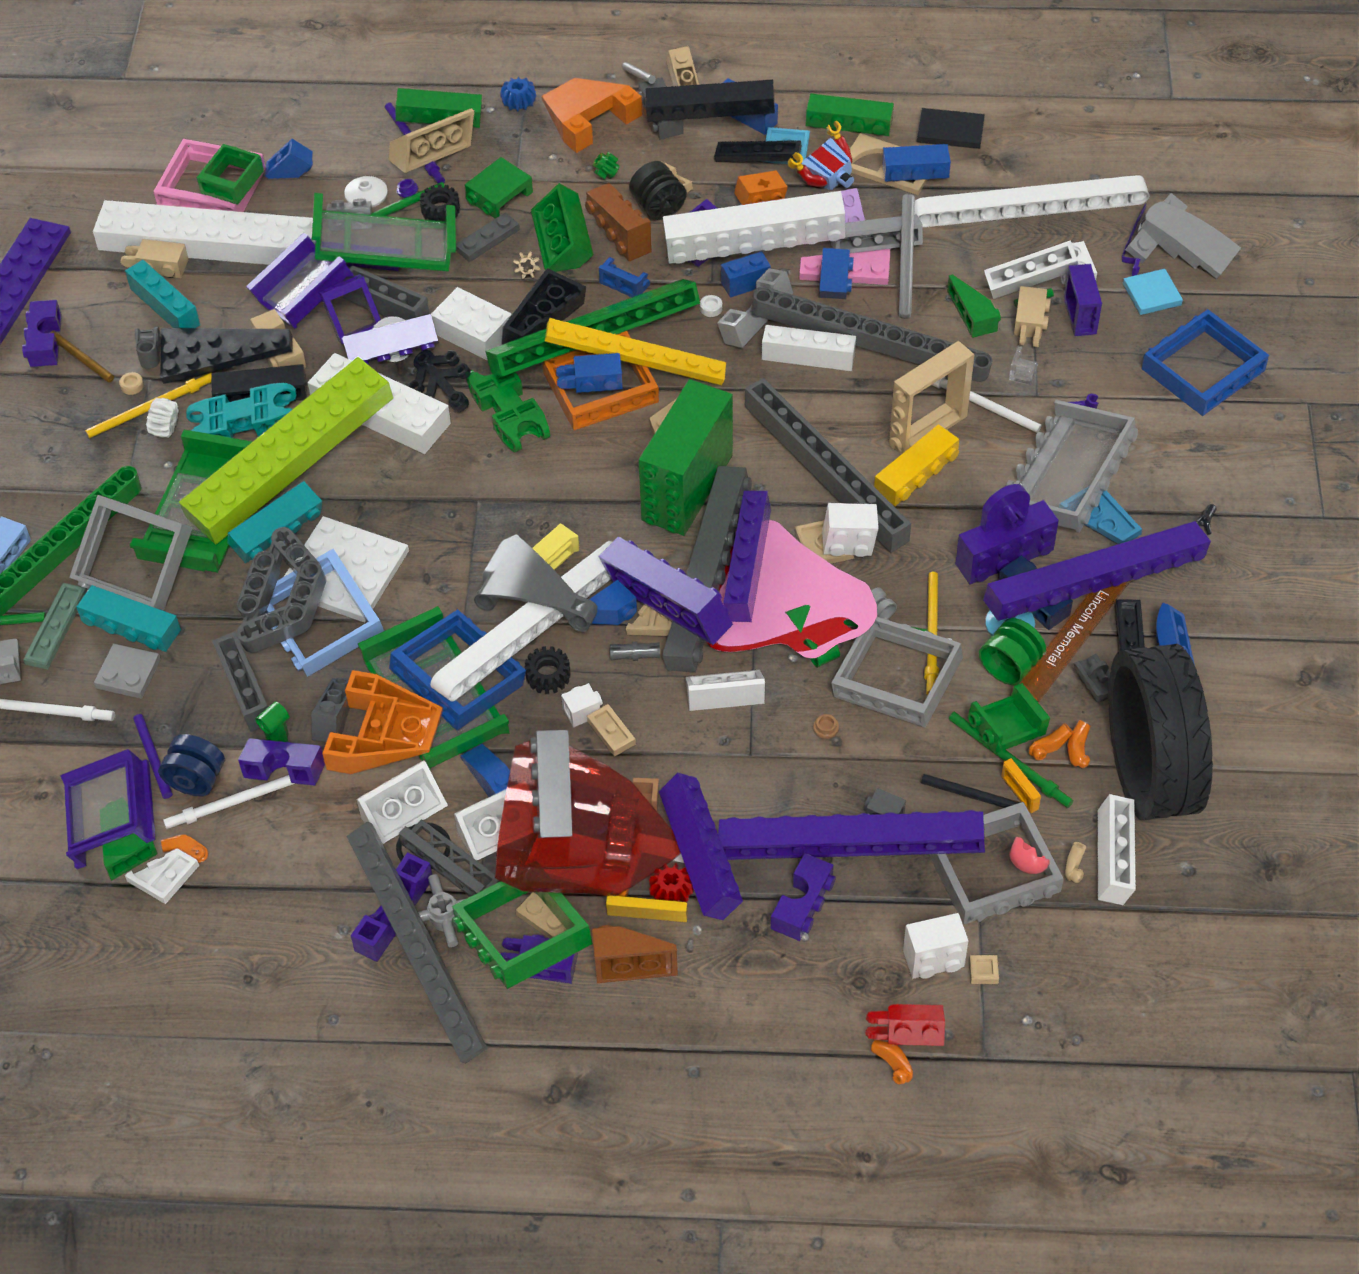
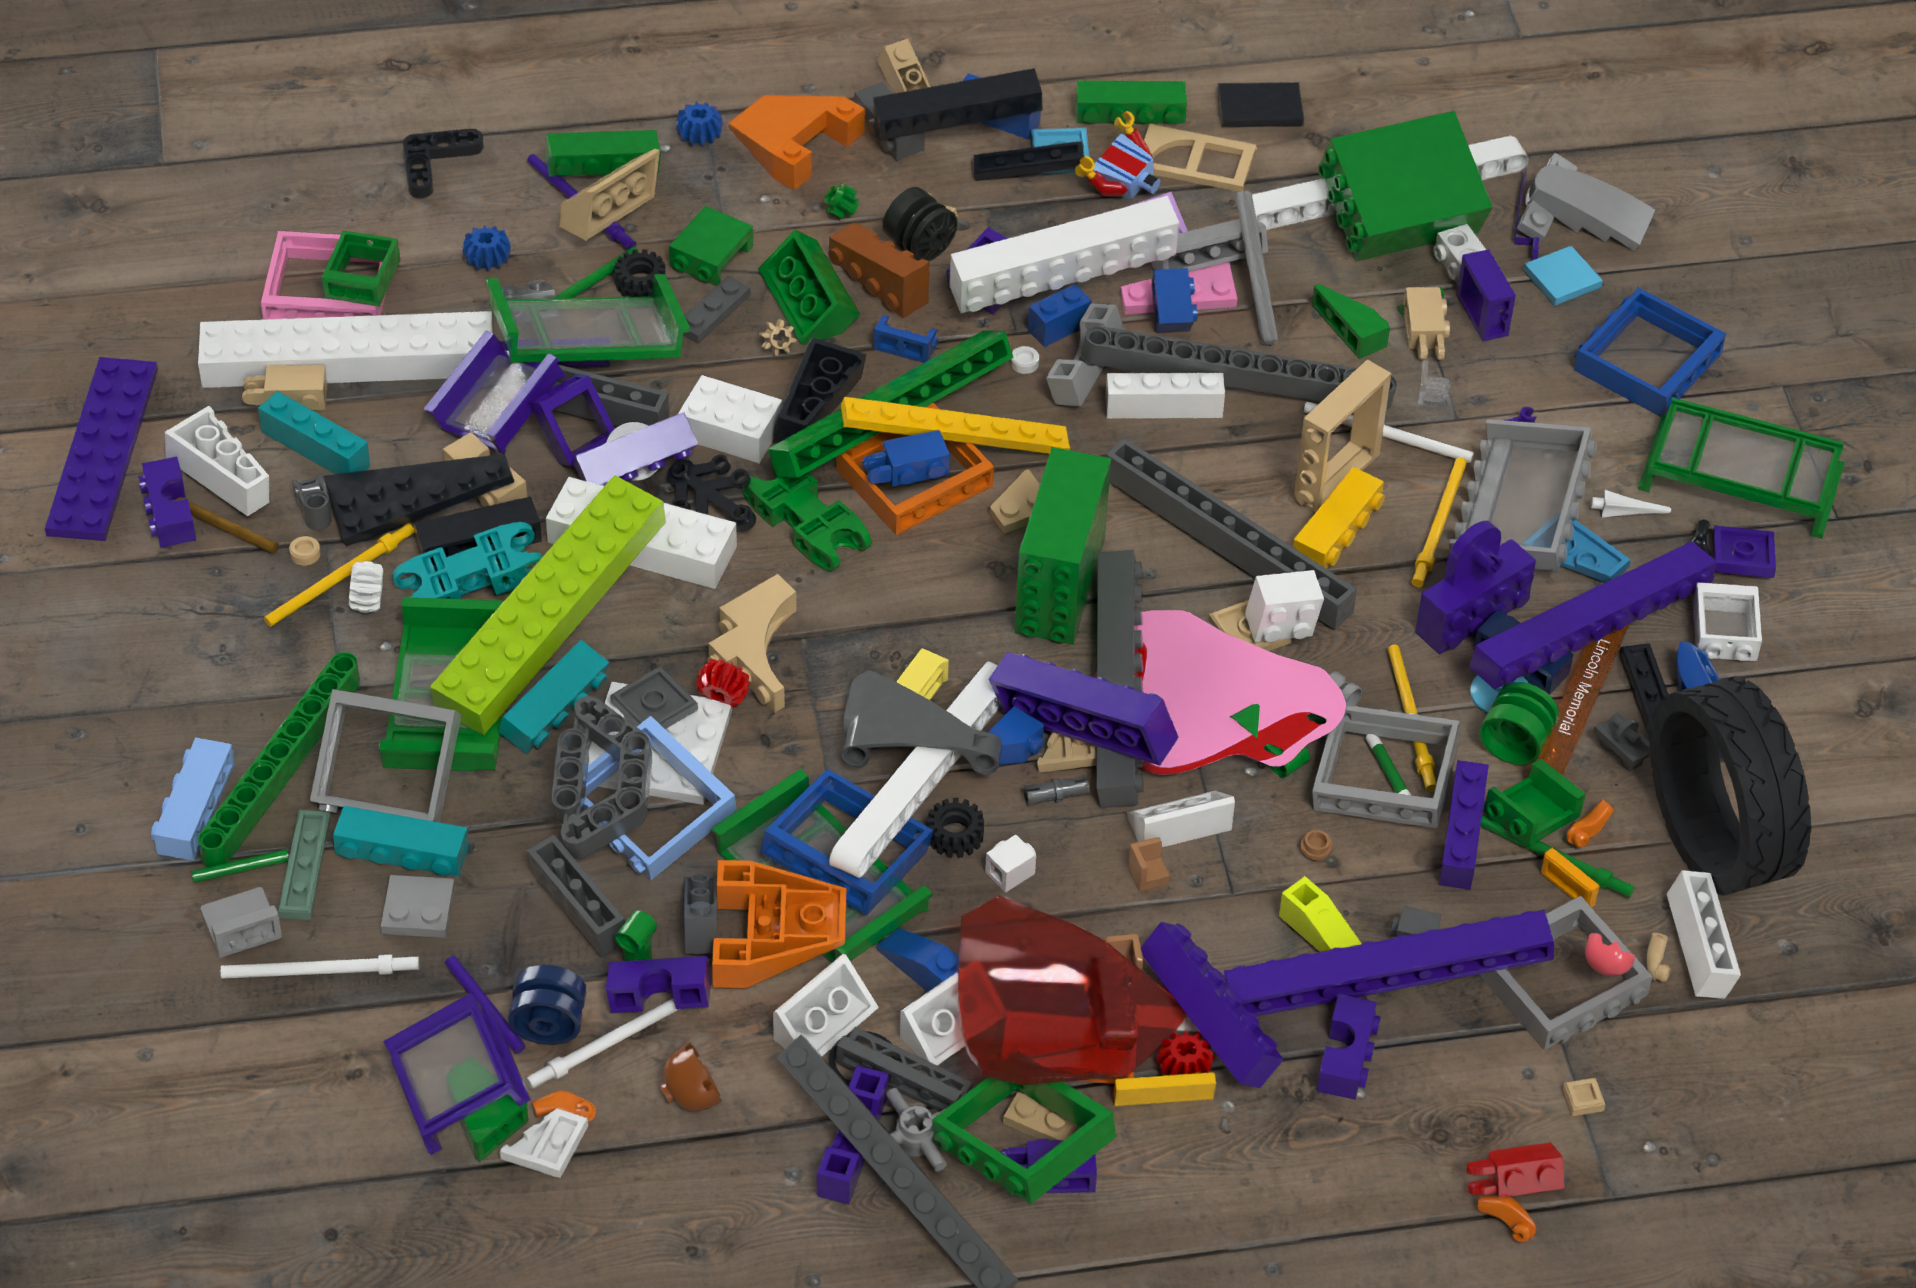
camera: 15 degrees left, 5 degrees down
(85, 306) = (218, 461): none -> white wedge
(282, 843) = (689, 1081): none -> dark orange cylinder
(289, 161) = (427, 243): blue slope -> none
(307, 91) = (424, 154): none -> black beam
(332, 169) = (486, 248): none -> blue gear
(347, 536) = (655, 696): none -> dark grey tile
(366, 188) = (535, 266): white dish -> none
(402, 529) = (723, 682): none -> red gear
(407, 188) = (590, 260): dark purple plate -> none
(437, 489) = (747, 631): none -> tan arch
(552, 784) = (1019, 954): brick -> none
(611, 730) = (1056, 887): tan plate -> none
(631, 955) = (1165, 1143): dark orange slope -> none
(639, 72) = (849, 79): light grey bar -> none
(688, 722) = (1147, 865): none -> medium nougat panel
(747, 555) = (1166, 648): dark purple brick -> none
(760, 188) = (1047, 207): orange brick -> none
(806, 786) = (1315, 917): none -> neon yellow slope
(902, 671) = (1387, 764): none -> green bar
(916, 162) = (1233, 152): blue brick -> none
(935, 946) = (1524, 1076): white brick -> none
(946, 727) = (1463, 825): none -> dark purple brick
(967, 791) = (1506, 896): black bar -> none
(976, 507) = (1425, 559): none -> yellow bar
(1031, 269) = (1414, 266): white brick -> none
(1038, 203) = (1403, 185): none -> green container
(1076, 745) = (1621, 822): orange arm -> none
(1145, 482) = (1616, 505): none -> white piece
(1208, 591) = (1727, 621): none -> window
(1238, 535) = (1744, 551): none -> dark purple plate
(1261, 461) = (1746, 460): none -> piece

